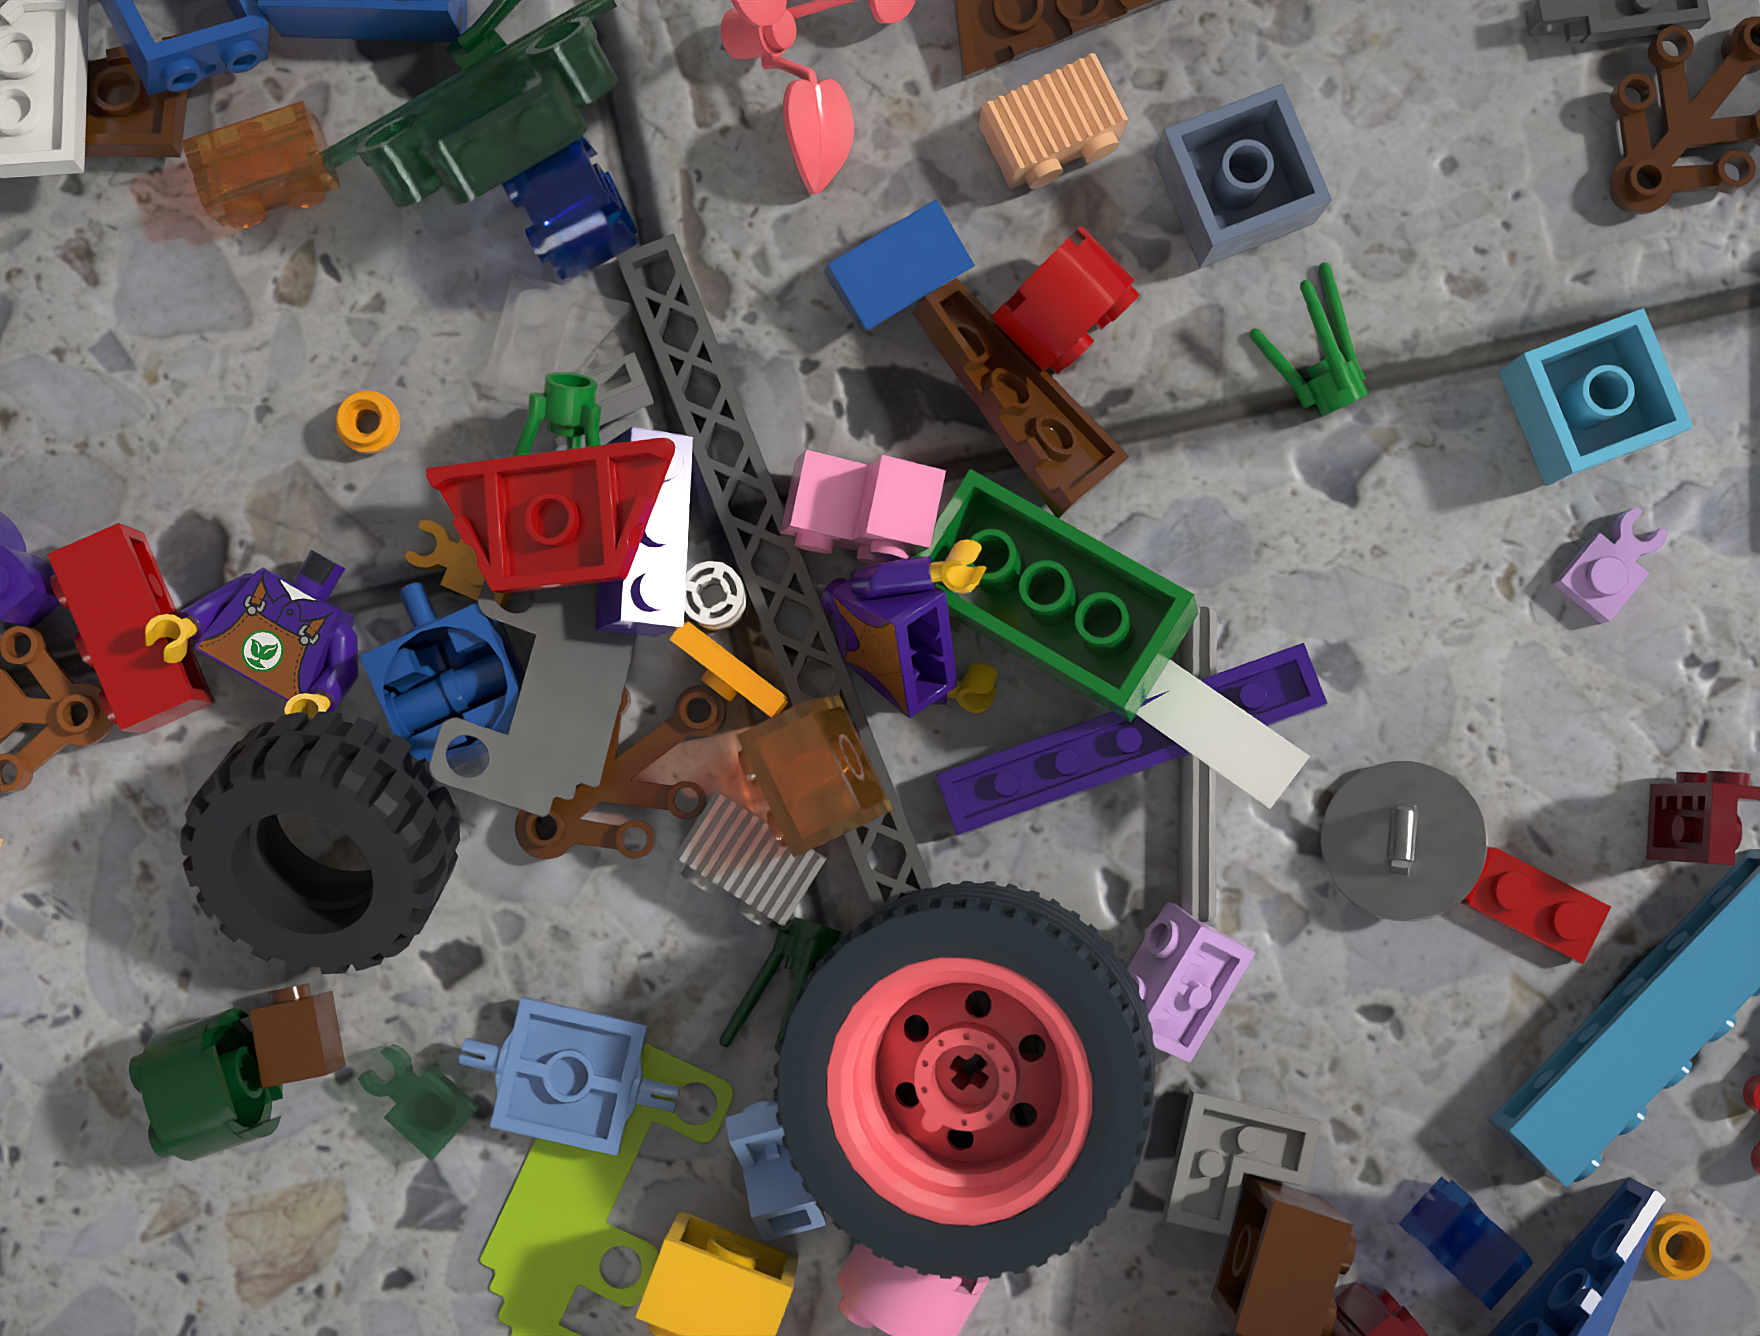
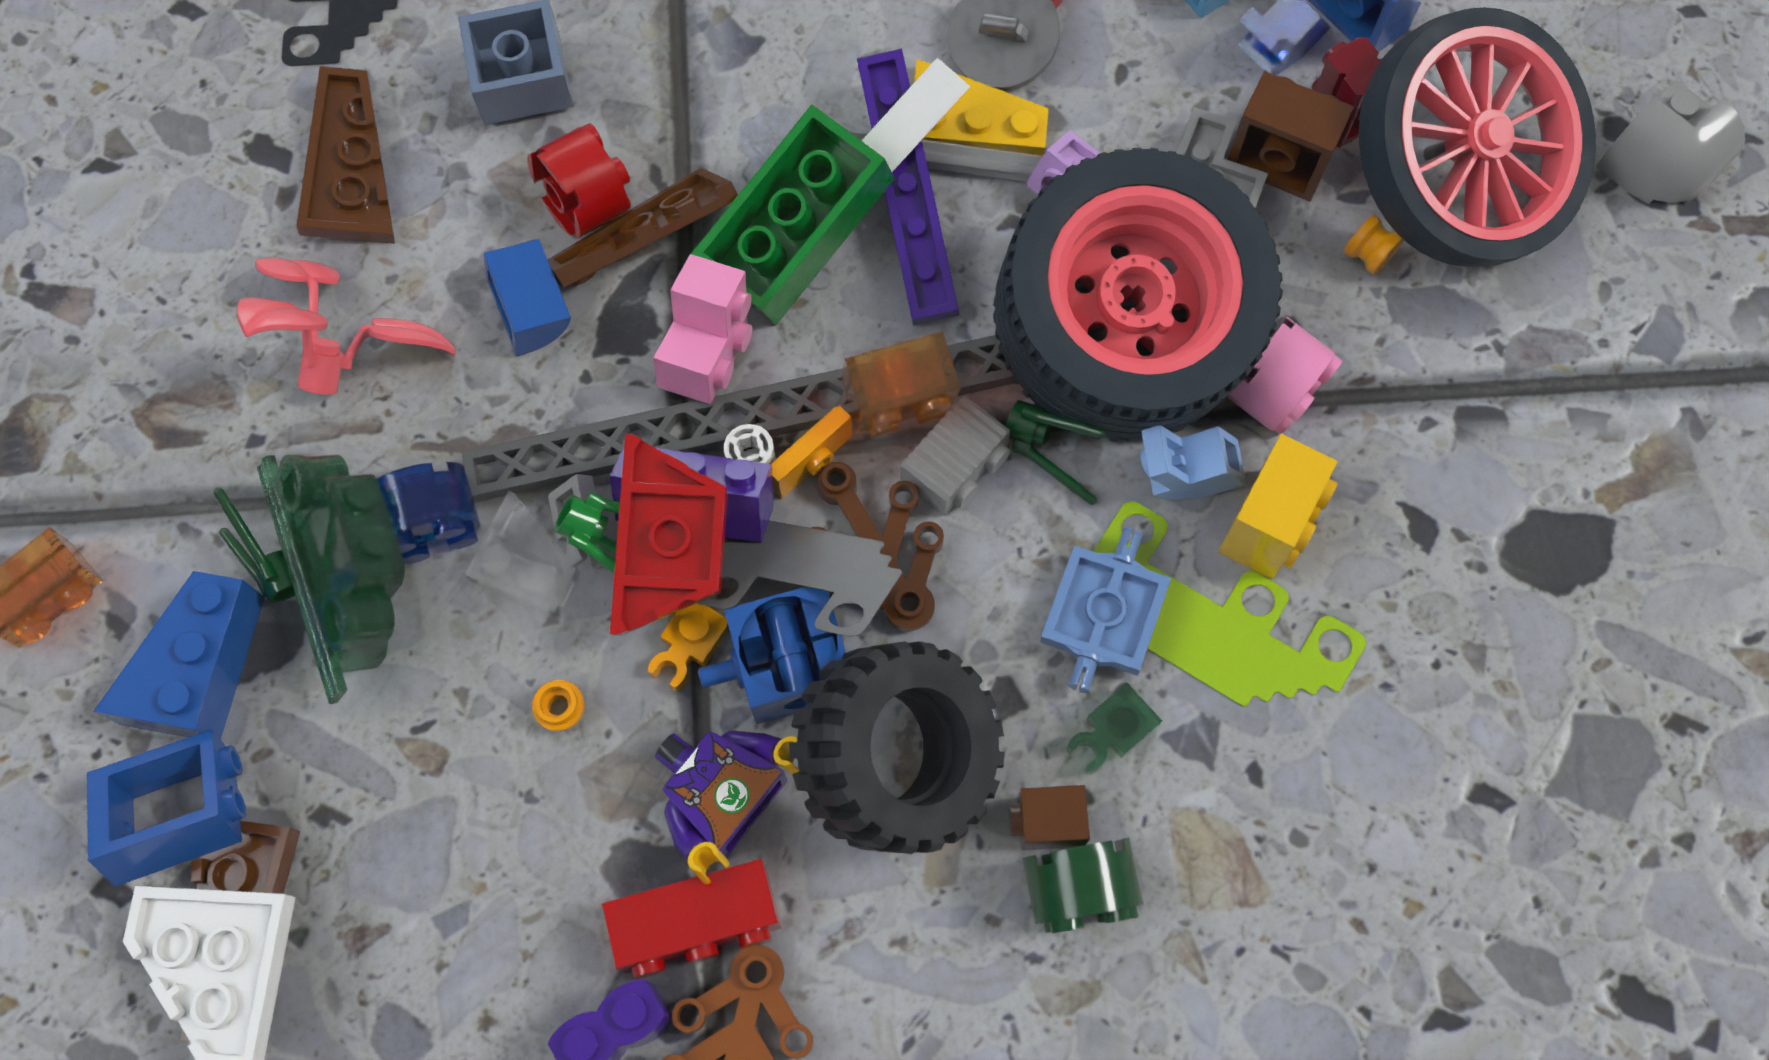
camera: 80 degrees left, 15 degrees down
(261, 165) = (326, 759): clear orange brick -> none
(899, 633) = (798, 317): dark purple torso -> none
(1053, 123) = (445, 181): light nougat brick -> none
(1268, 848) = (991, 120): none -> yellow wing
(1337, 378) = (673, 31): green plant -> none

